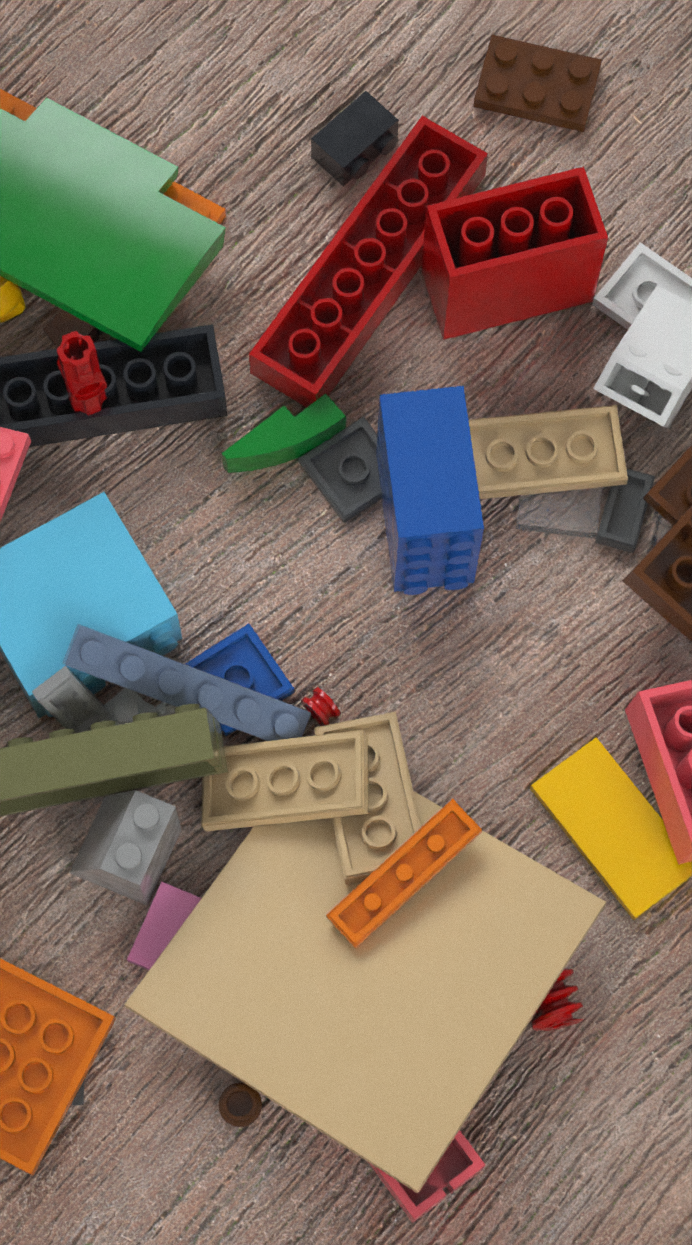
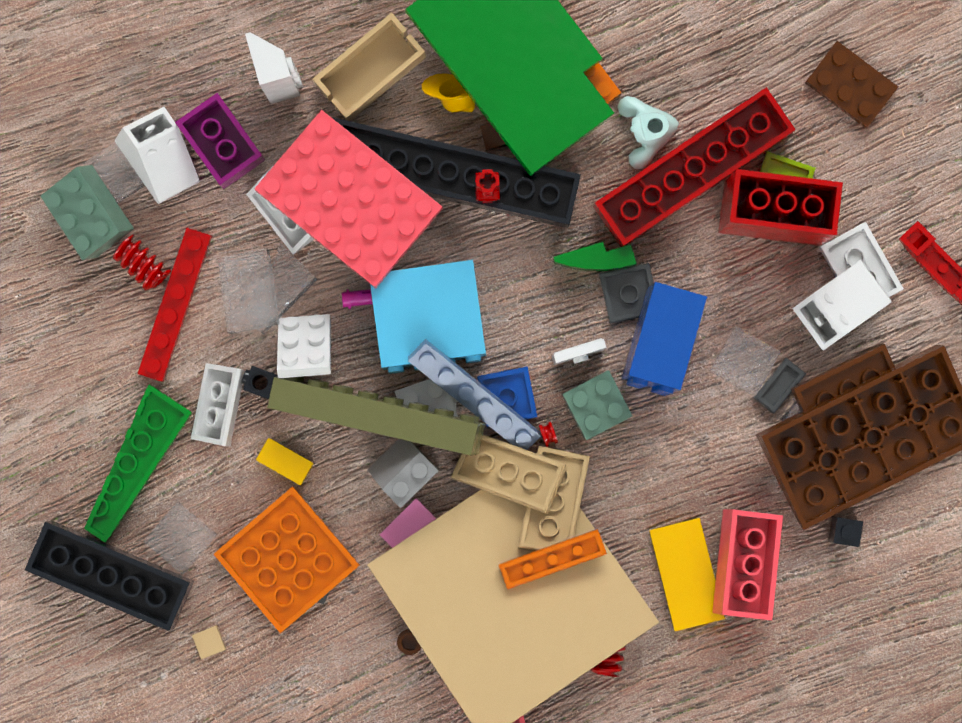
camera: 25 degrees right, 15 degrees up
(70, 701) = (404, 379): light grey plate -> none
(286, 234) = (650, 127): none -> light aqua head
(314, 568) = (579, 353): none -> white plate
(355, 139) = (720, 79): black brick -> none
(374, 636) = (597, 405): none -> sand green brick
(548, 452) = (747, 334): tan tile -> none

